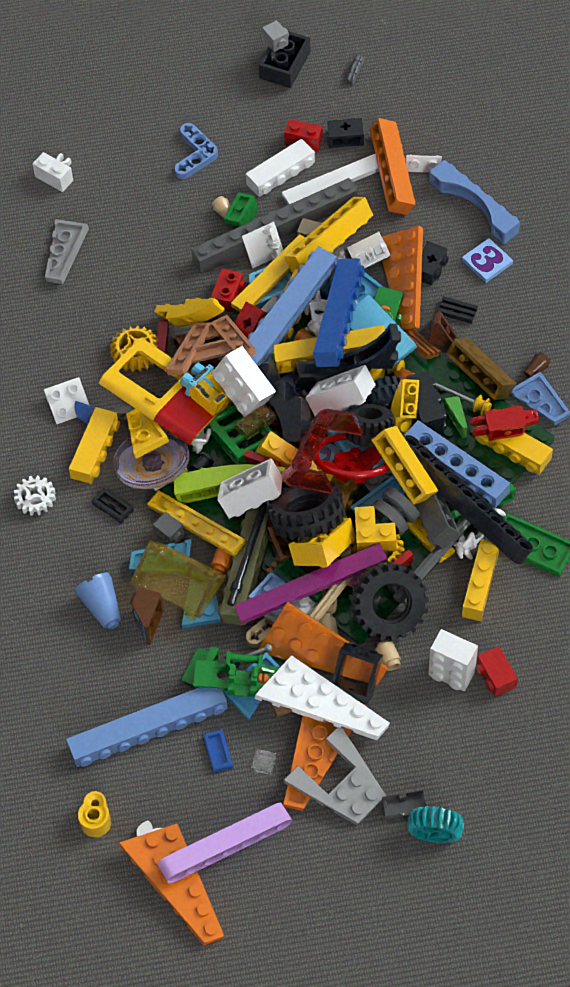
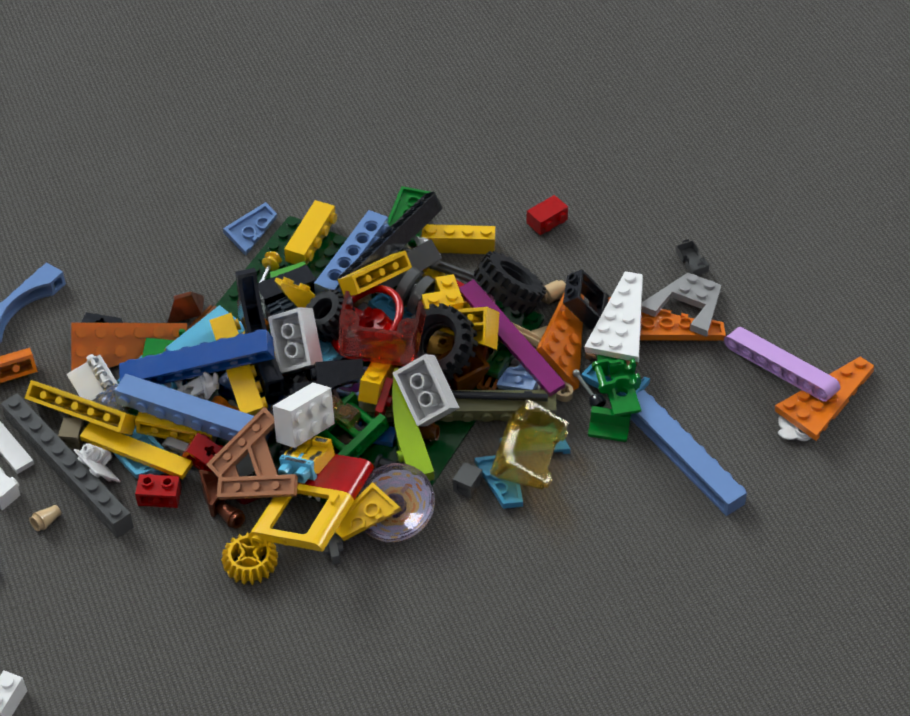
camera: 105 degrees left, 10 degrees down
(34, 495) = (459, 604): white gear -> none
(63, 397) = (328, 607): white hinge -> none
(64, 248) = (117, 661): light grey wing -> none
(83, 411) = (341, 587): blue tile -> none
(93, 445) = (382, 567): yellow brick -> none
(94, 815) = (791, 470): yellow piece -> none
(100, 599) = (564, 515): medium blue cone -> none
(124, 514) = (443, 551): black tile -> none
(147, 611) = (574, 469): reddish brown slope -> none
(162, 335) = (219, 537): dark red beam -> none
(192, 312) = (205, 496): yellow slope -> none
(197, 523) = (459, 451): yellow tile -> none
(218, 751) = (688, 397): blue tile -> none
(221, 561) = (489, 429): orange brick -> none
(242, 210) = (51, 495): green panel -> none
(263, 761) = (686, 362): clear tile -> none
(435, 824) = (707, 228): teal gear -> none
(452, 660) = (554, 233): white brick -> none
(458, 308) = (156, 293): black tile -> none
(481, 368) = (223, 272): pearl gold brick -> none
(487, 260) = (89, 290): light blue tile -> none
(504, 422) = (298, 228): red hinge -> none
(537, 364) = (213, 235): reddish brown cone -> none

